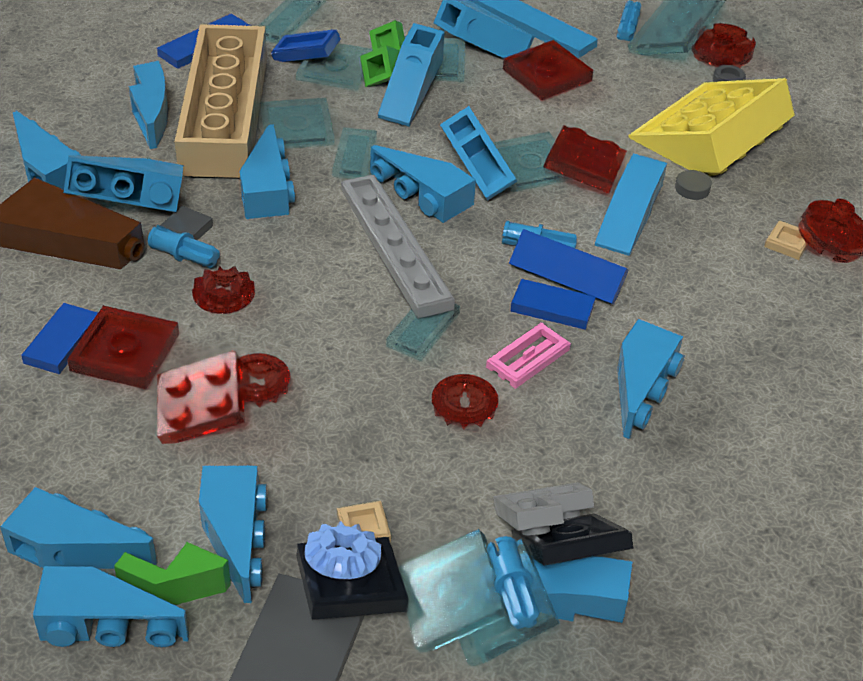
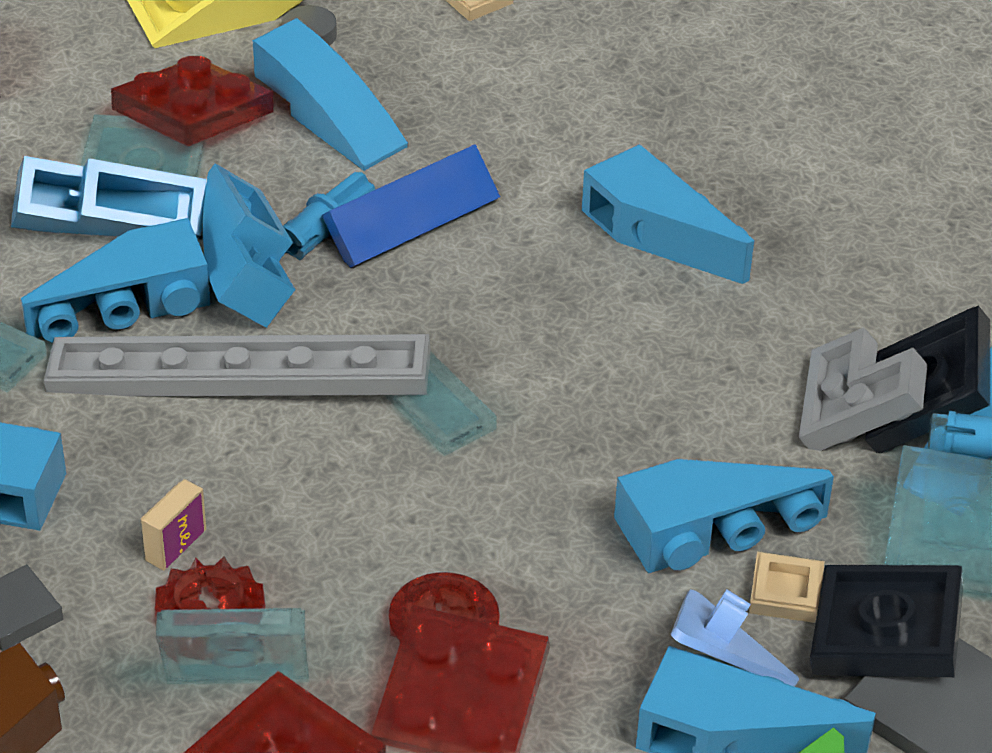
camera: 65 degrees left, 0 degrees up
(171, 293) = (232, 645): none -> clear light blue tile
(183, 246) = (81, 619): dark azure axle -> none
(260, 254) = (173, 524): none -> tile
(294, 499) = (718, 634): none -> light blue piece
(339, 561) = (845, 619): light blue gear -> none
(393, 459) = (673, 505): none -> dark azure slope
(481, 210) = (244, 247): none -> dark azure slope
(481, 396) = (598, 386): clear red gear -> none
(518, 378) = (566, 346): bright pink tile -> none
(553, 304) = (466, 252): blue tile -> none

